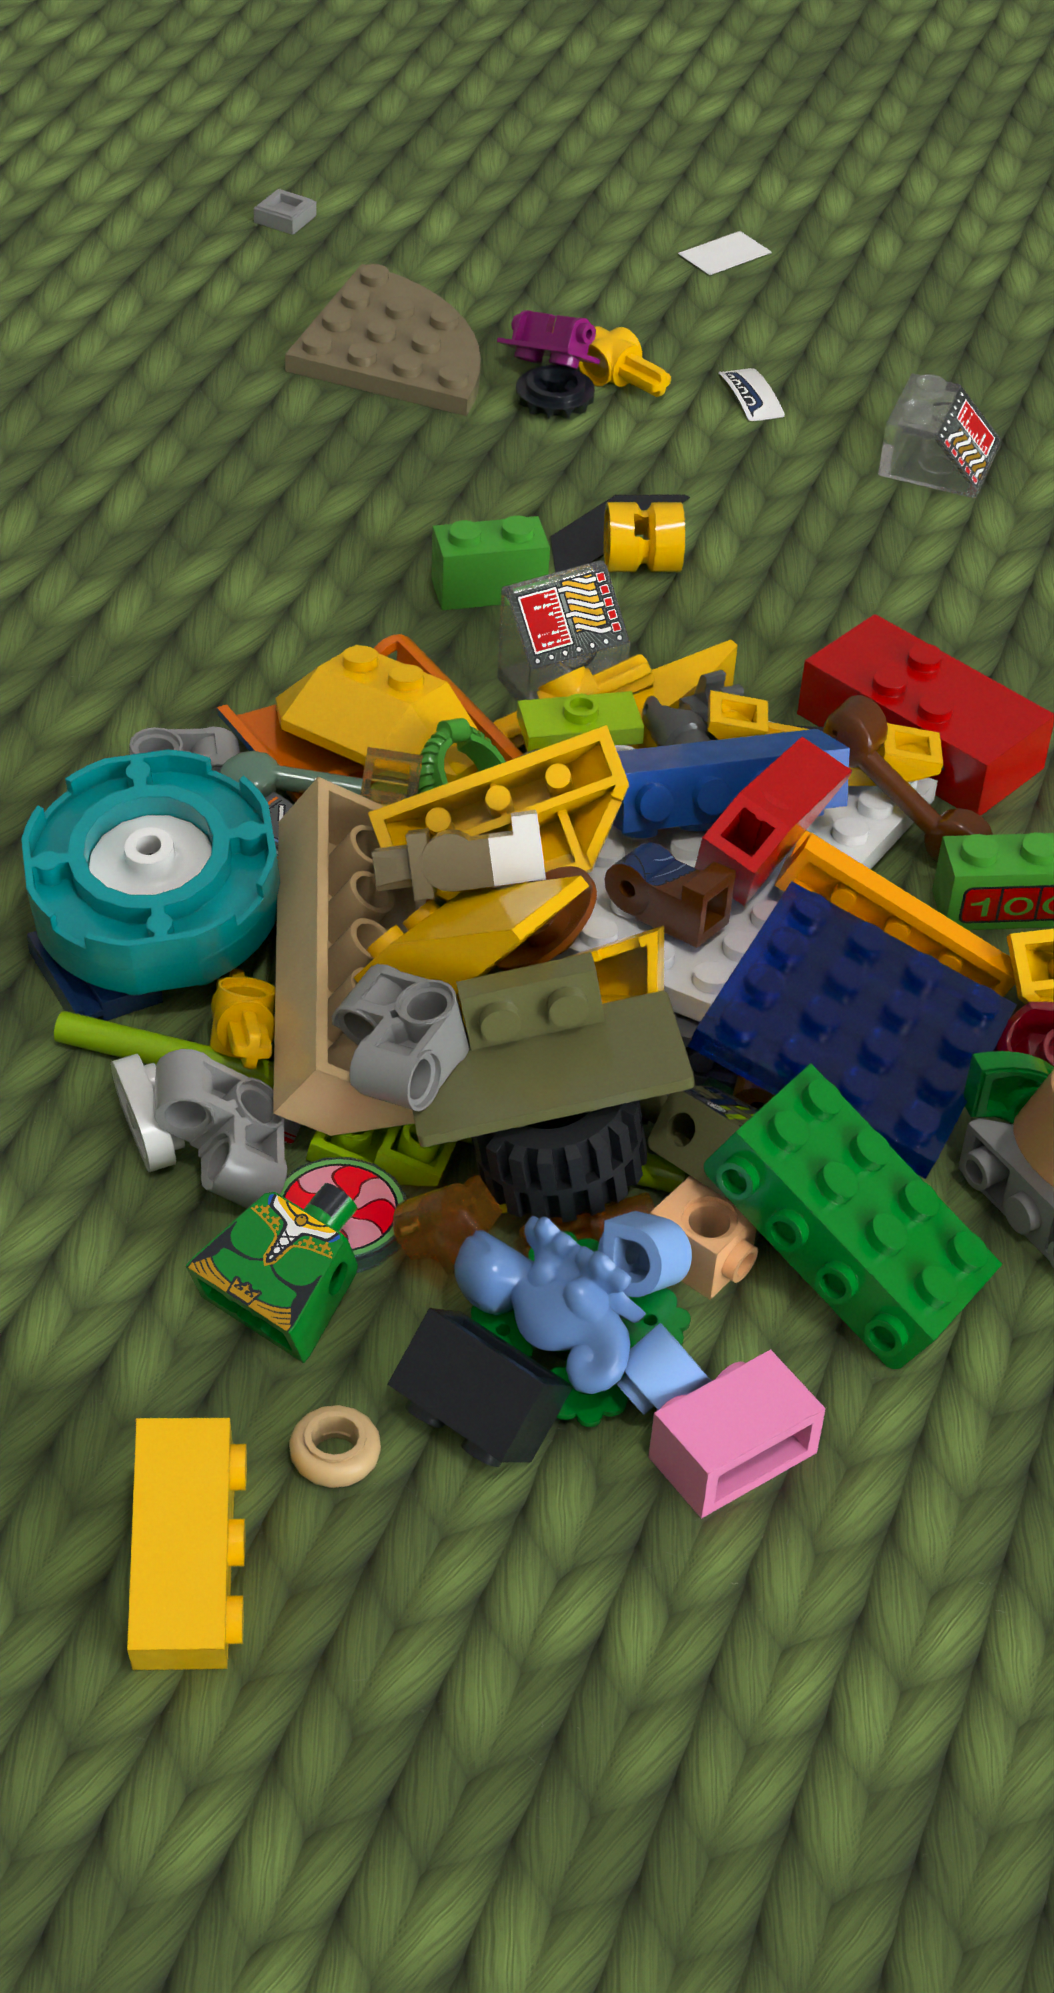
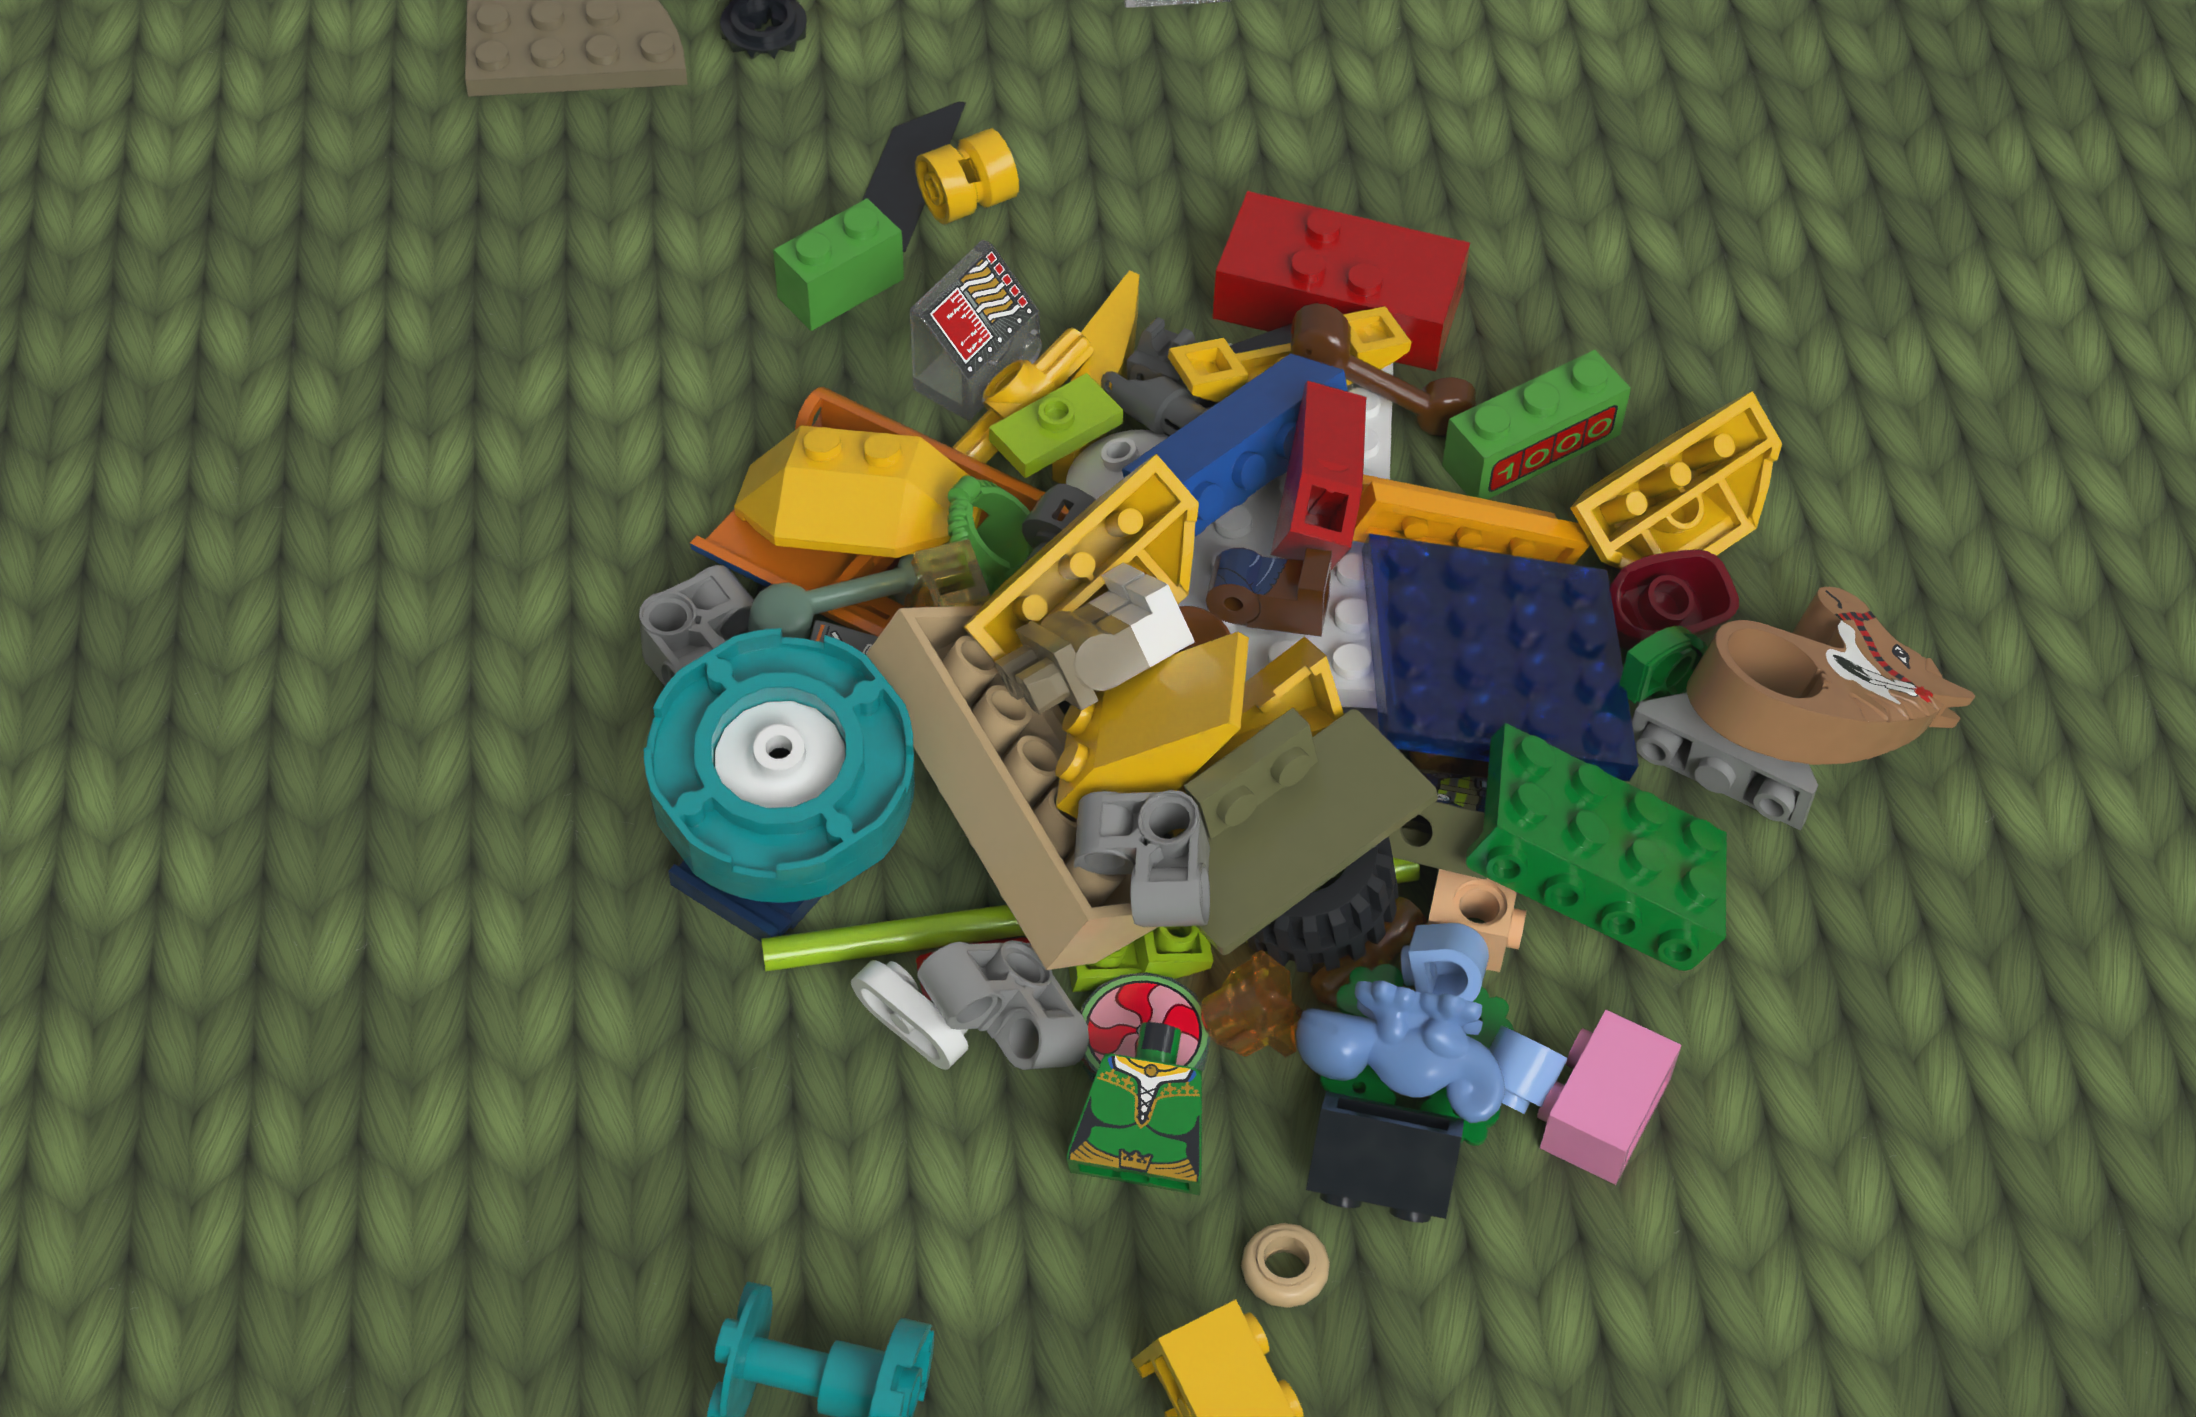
camera: 25 degrees left, 10 degrees up
(243, 1018) = (947, 880): yellow axle -> none

